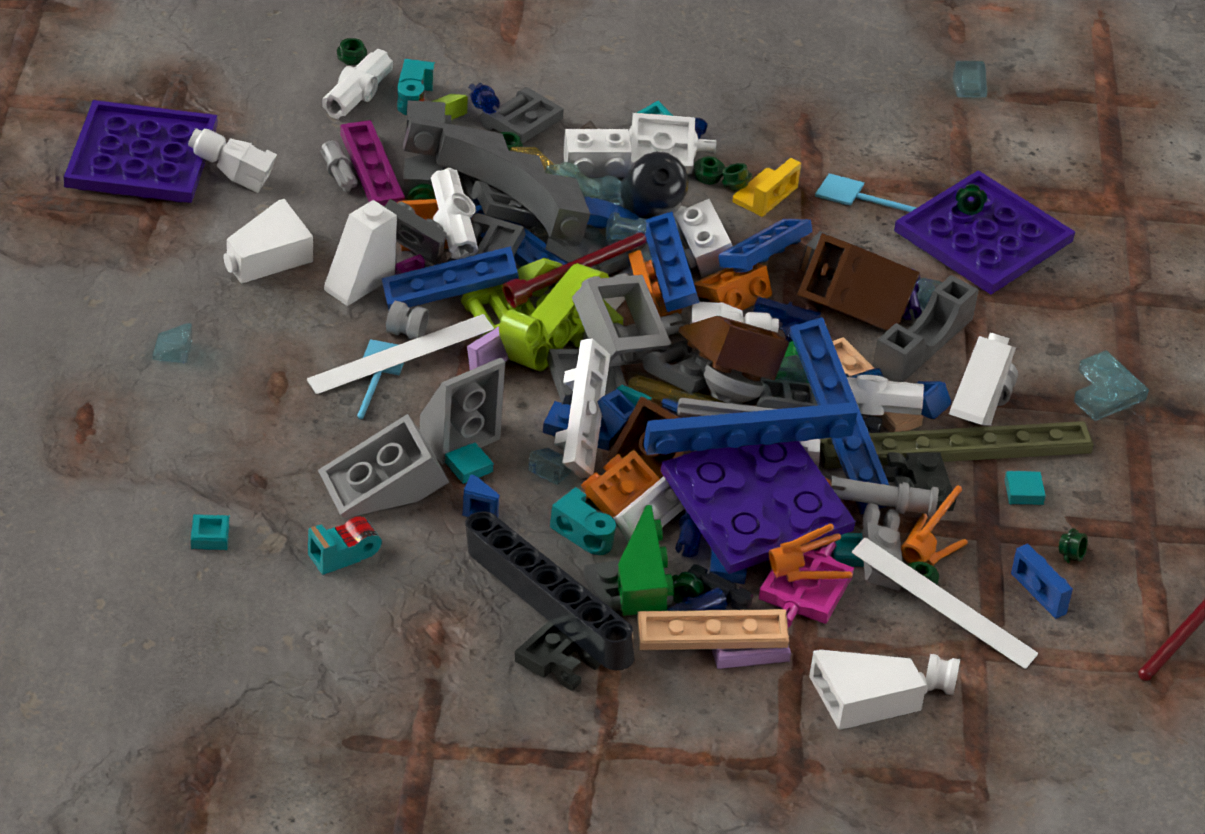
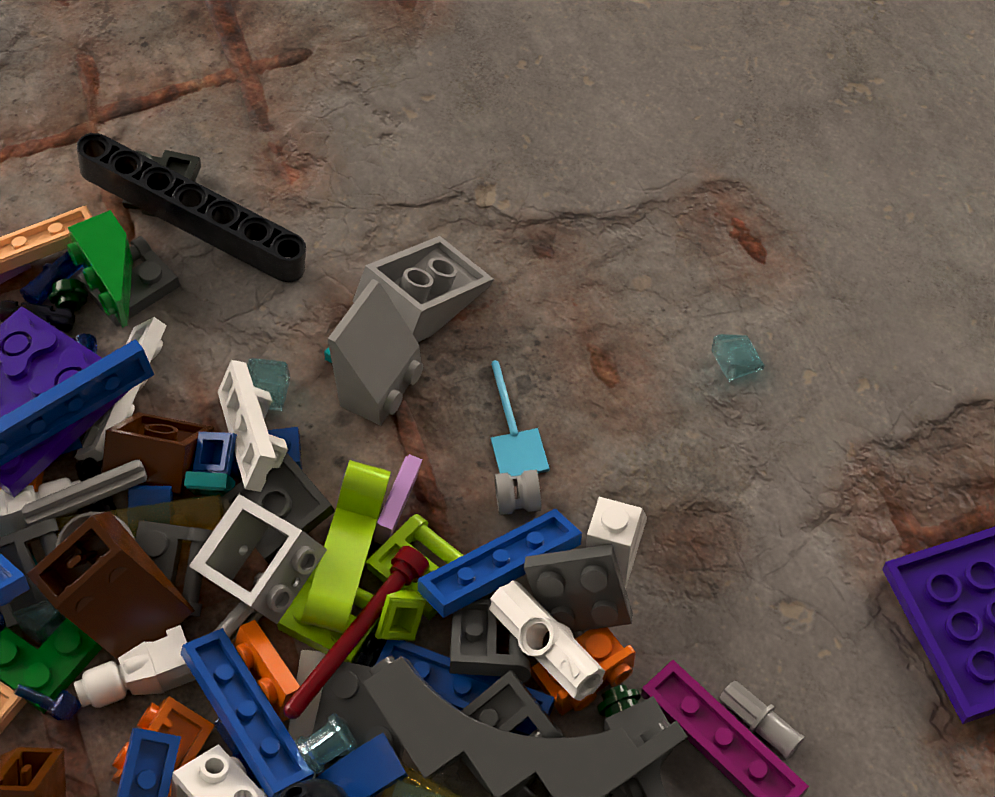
camera: 160 degrees right, 15 degrees up
(210, 532) = (545, 173): teal tile -> none
(236, 158) = (879, 637): white piece -> none
(269, 244) = (741, 533): white slope -> none
(342, 544) = (416, 199): teal leg -> none
(399, 354) = (496, 455): white sticker -> none
(479, 497) = (310, 297): blue slope -> none
(582, 523) = (199, 319): teal leg -> none
(620, 484) = (183, 380): orange bracket -> none
(784, 312) = (77, 733): clear blue axle -> none

